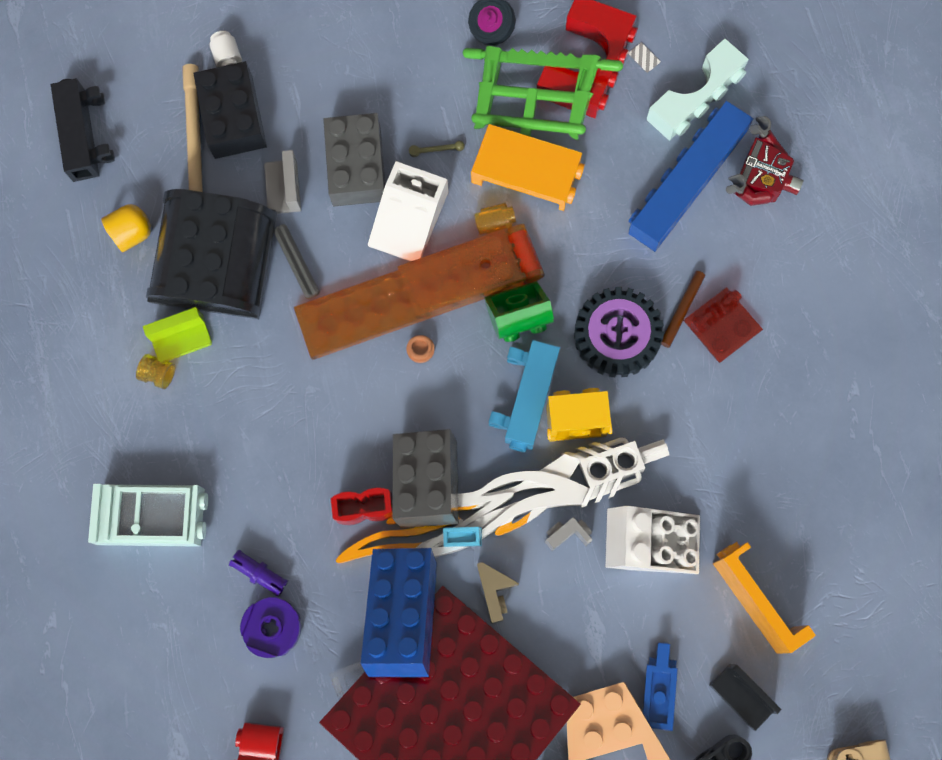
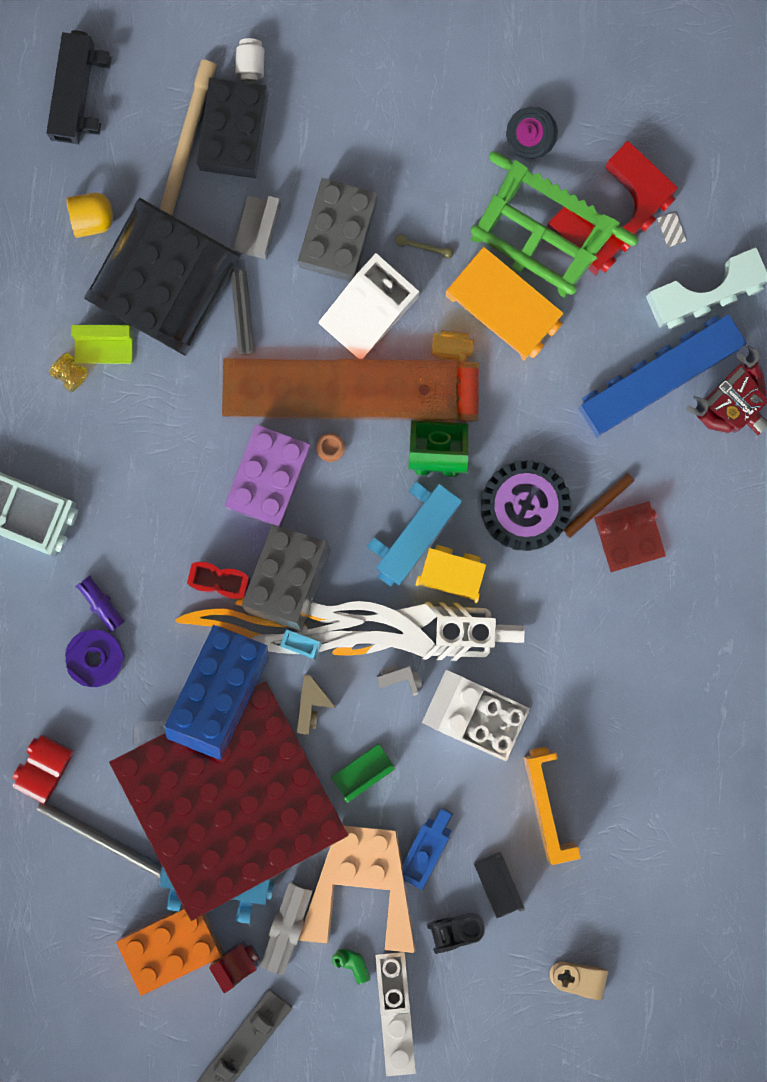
camera: 15 degrees right, 10 degrees up
(372, 394) = (268, 476): none -> medium lavender brick
(569, 638) = (363, 773): none -> green panel

